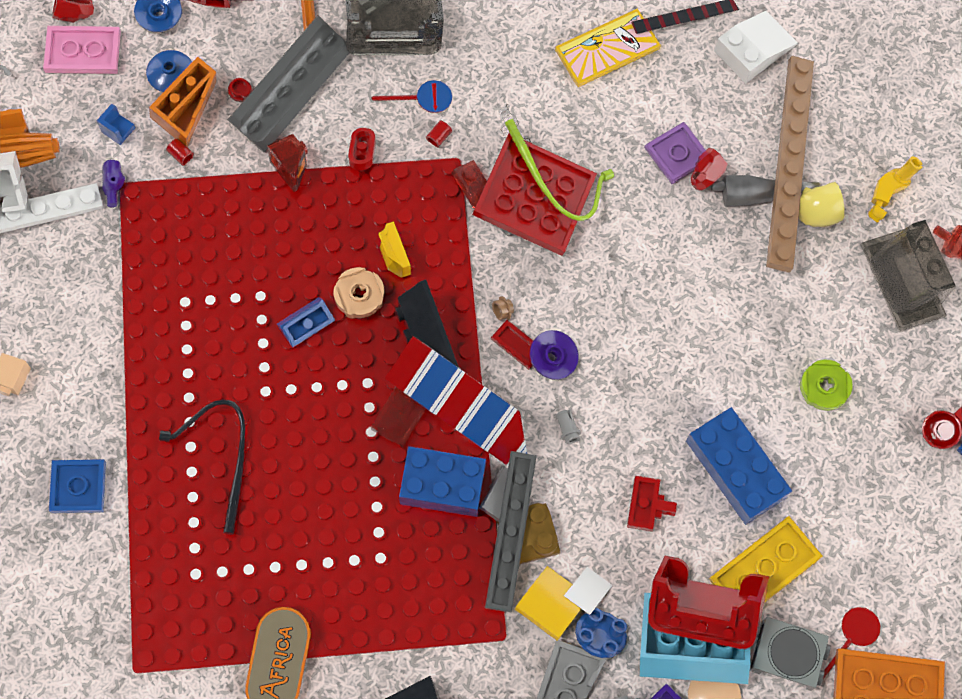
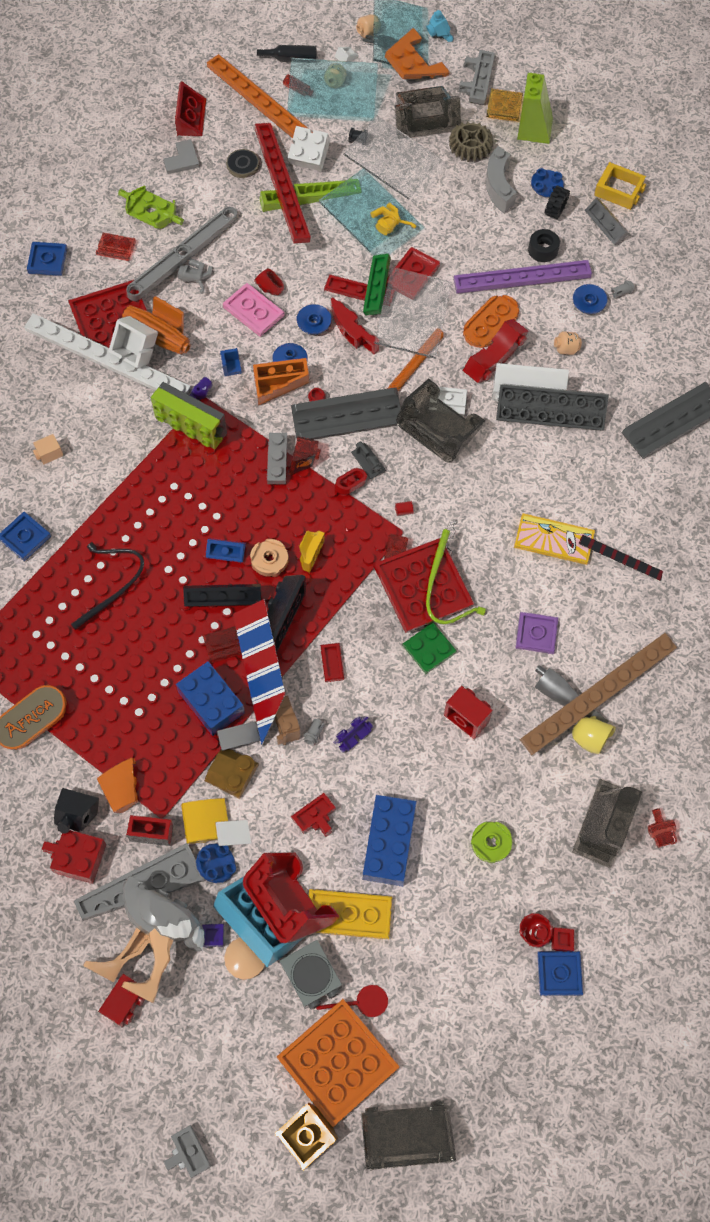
camera: 45 degrees right, 5 degrees down
(133, 214) = (189, 415): none -> lime piece
(179, 151) = (251, 404): red hinge -> none
(264, 185) = (277, 458): none -> light grey plate
(350, 370) = (222, 595): none -> black plate
(356, 114) = (368, 460): none -> dark grey hinge
(431, 96) = (421, 485): blue piece -> none
(437, 645) = (119, 786): none -> orange slope
(503, 305) = (343, 634): medium nougat plate -> none
(510, 532) = (219, 759): dark grey tile -> none
(511, 660) = (150, 830): none -> red brick
(541, 442) = (286, 723): none -> medium nougat piece
(561, 347) = (350, 676): dark purple dish -> none
(595, 252) = (429, 648): none -> green plate
(605, 384) = (346, 737): none -> dark purple hinge
(695, 281) = (468, 712): none -> red brick
(708, 169) = (542, 655): rock -> none
(754, 45) = (648, 608): white slope -> none
(892, 183) = (654, 759): yellow arm -> none

